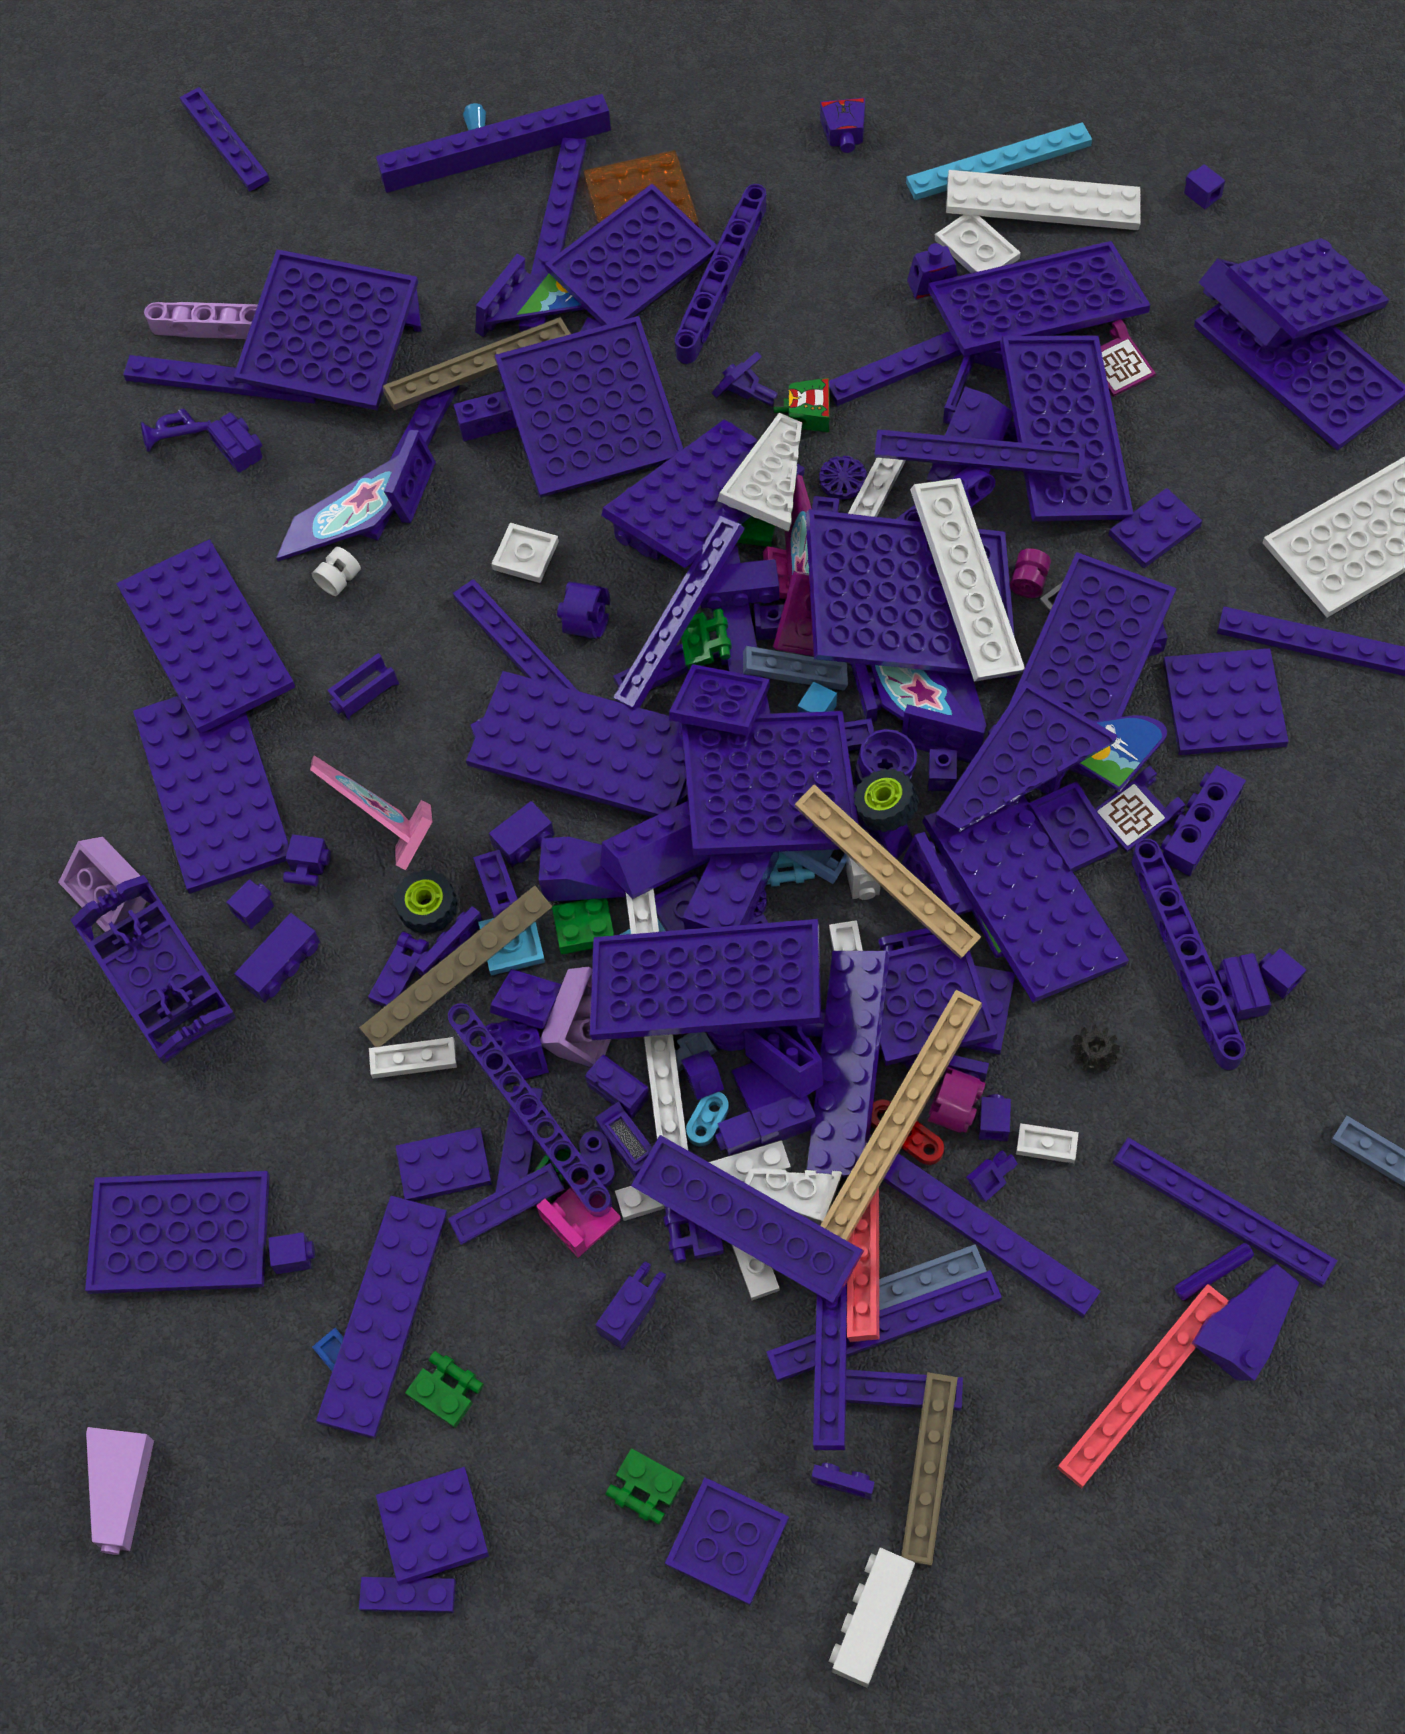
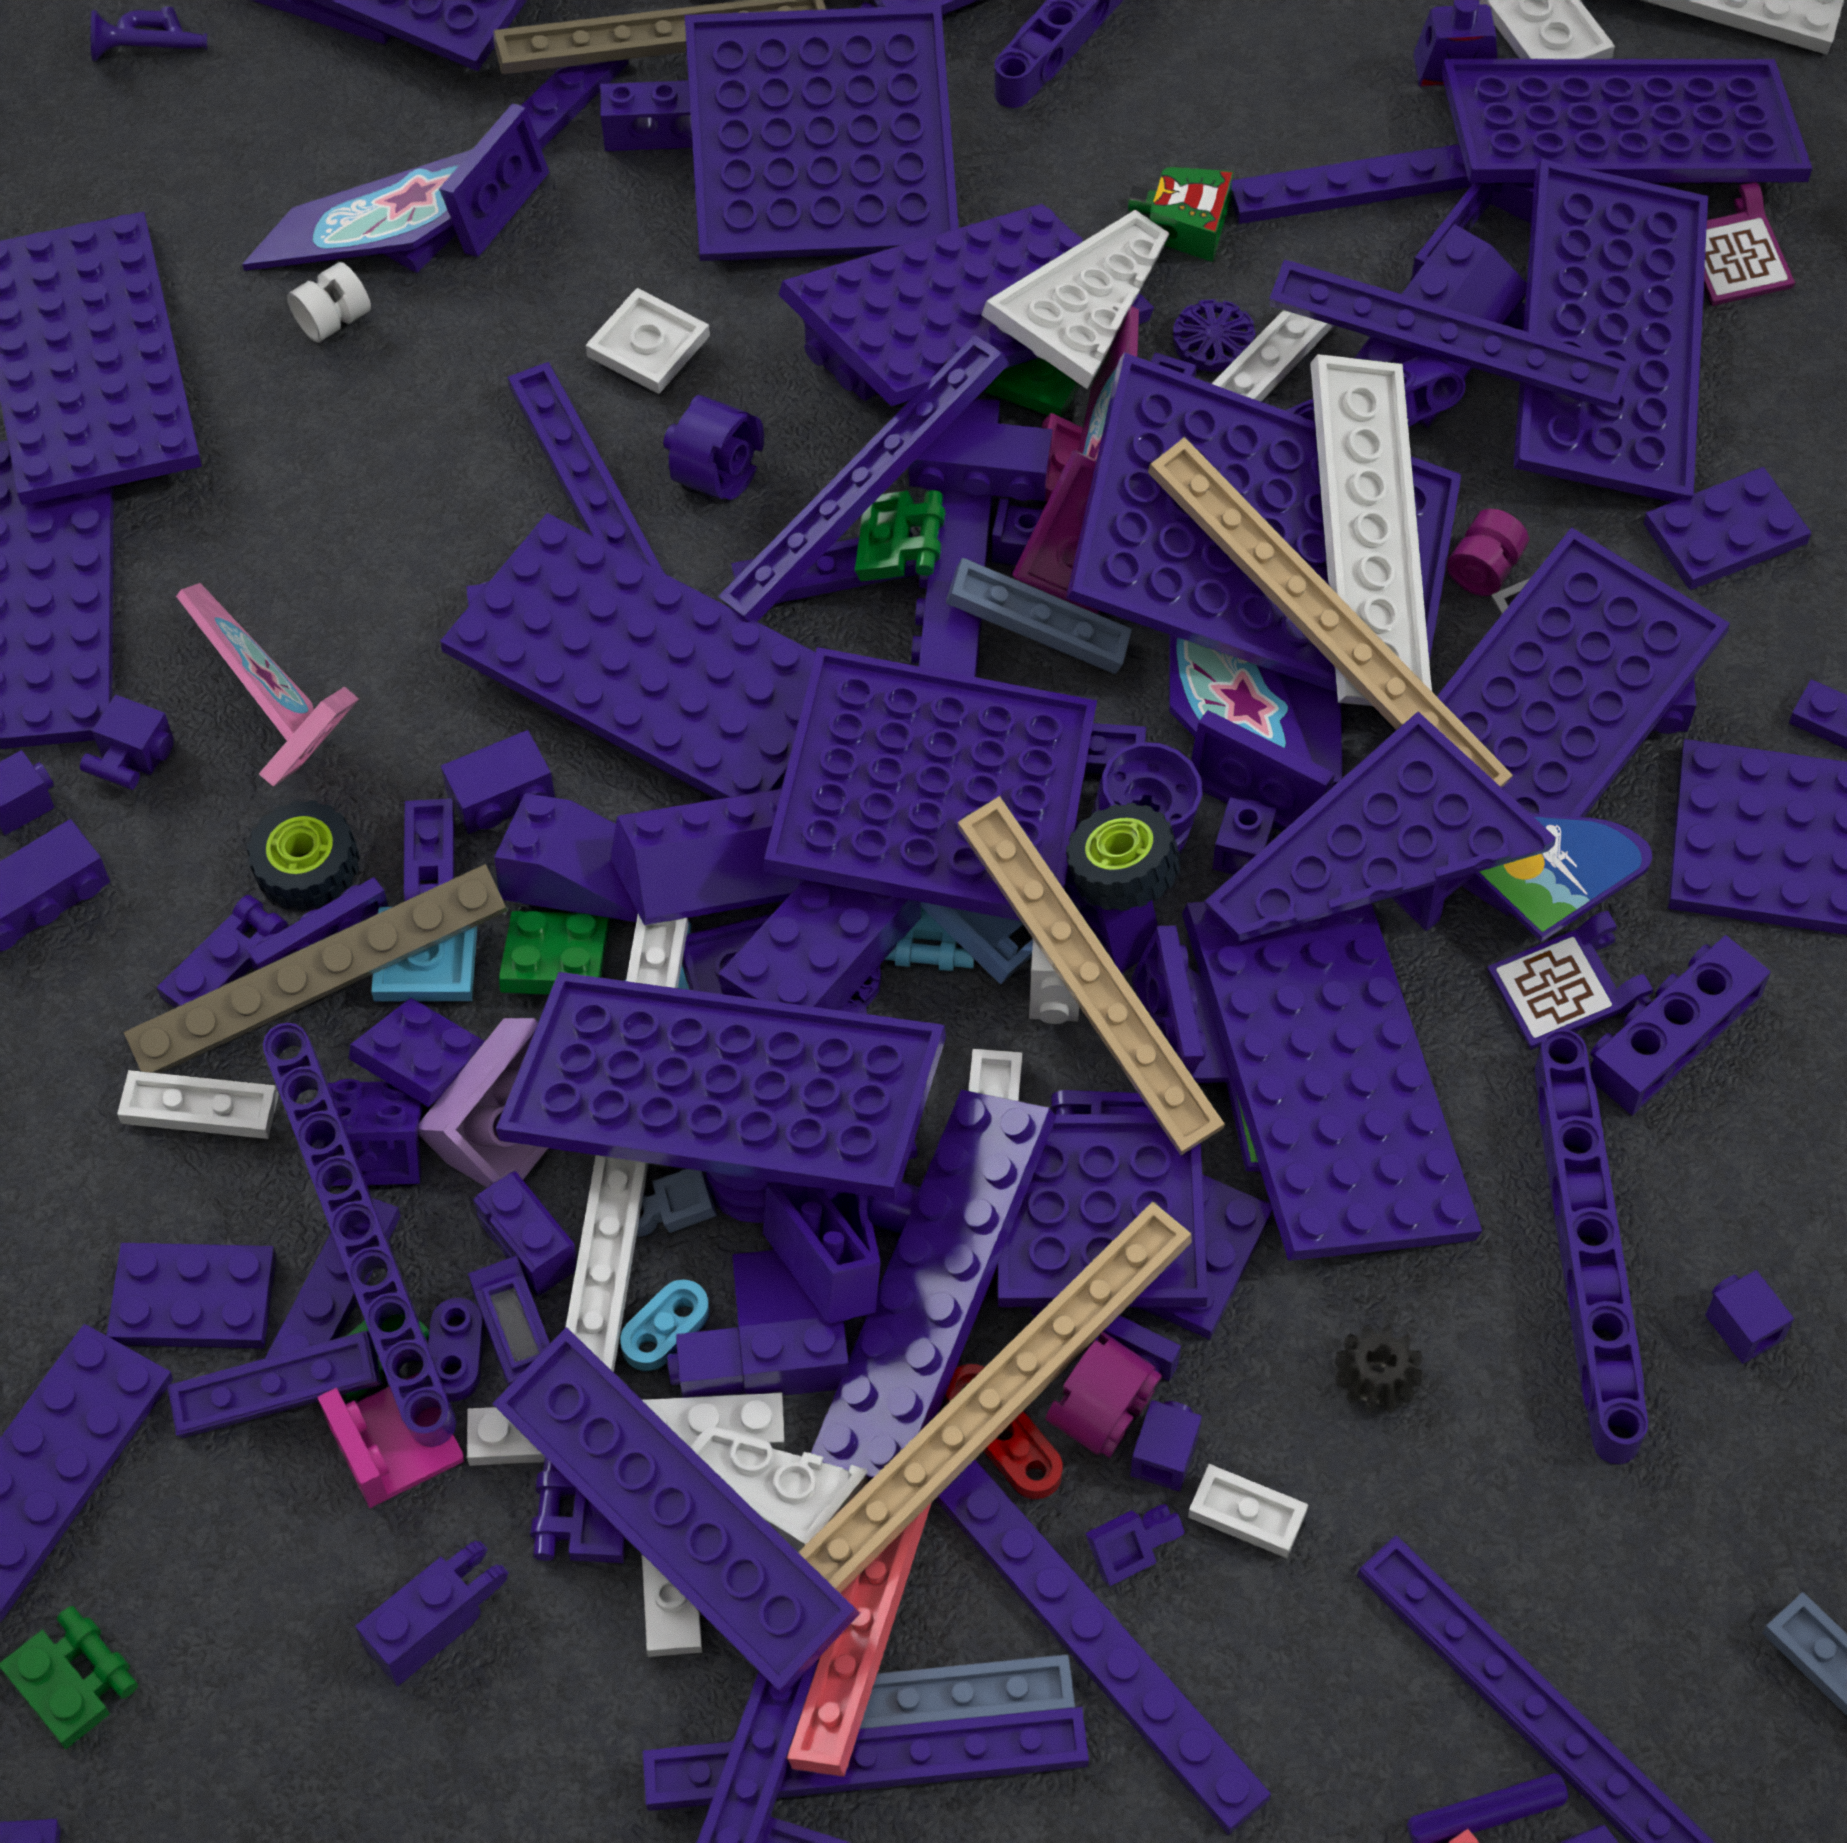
camera: 10 degrees right, 5 degrees down
(235, 442) = (235, 72): dark purple brick -> none
(361, 686) = (311, 489): dark purple window -> none
(702, 1074) = (676, 1247): dark purple brick -> none
(719, 700) = (890, 633): dark purple plate -> none
(744, 382) = (1089, 149): dark purple piece -> none
(818, 699) = (1064, 674): dark azure brick -> none
(865, 682) = (1153, 667): dark purple plate -> none
(947, 629) = (1309, 600): none -> tan plate
(1073, 827) = (1446, 984): dark purple plate -> none
(1244, 986) = (1674, 1324): dark purple brick -> none

